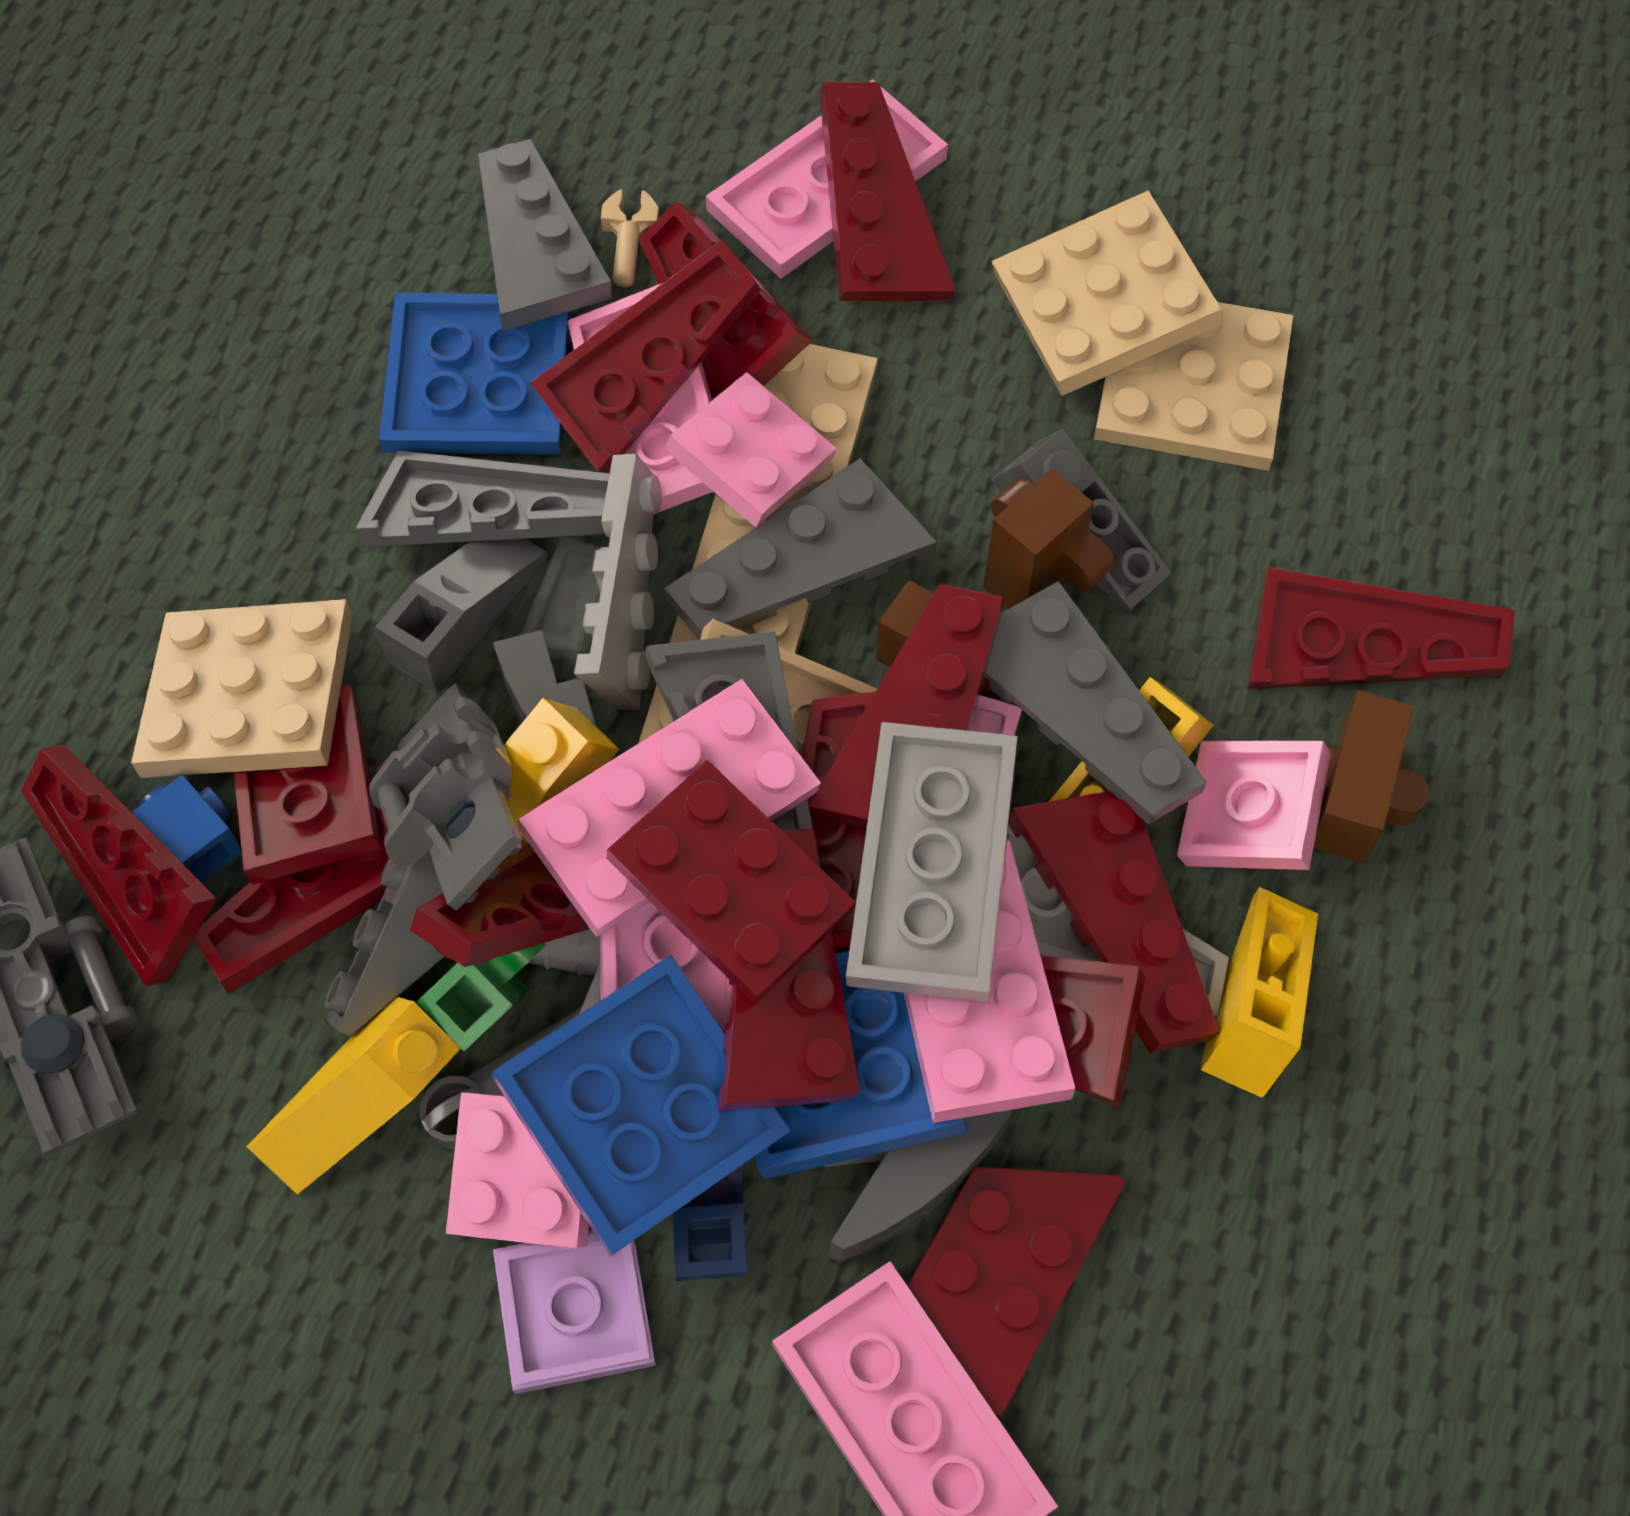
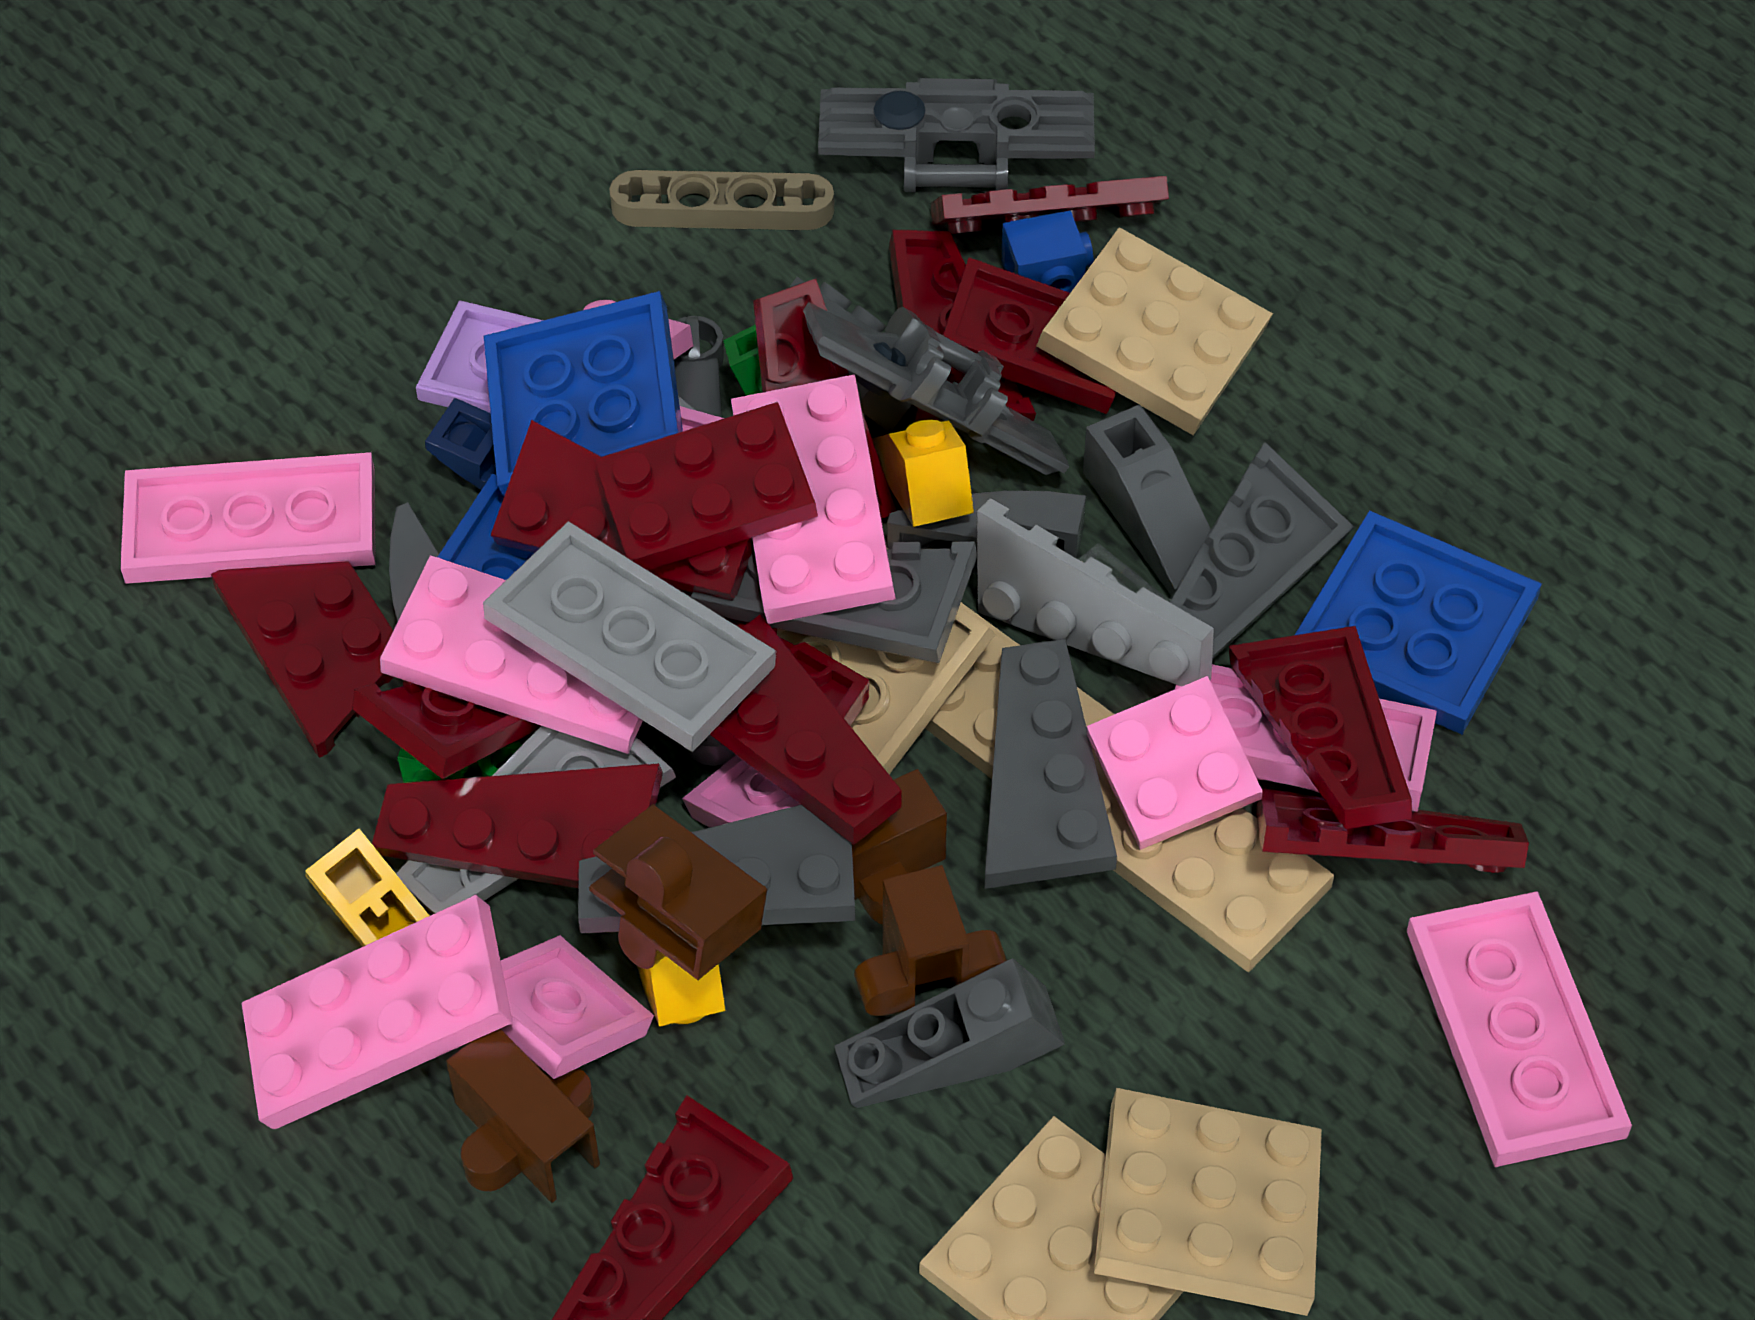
camera: 120 degrees right, 10 degrees down
(229, 1200) = (722, 191): none -> dark tan beam
(354, 1093) = (739, 270): yellow slope -> none
(535, 241) = (1550, 720): dark grey wing -> none
(627, 233) = (1538, 823): tan bar -> none
(877, 213) = (1424, 1028): dark red wing -> none
(1164, 681) = (676, 895): none -> reddish brown piece
(1367, 929) = (375, 1012): none -> bright pink plate

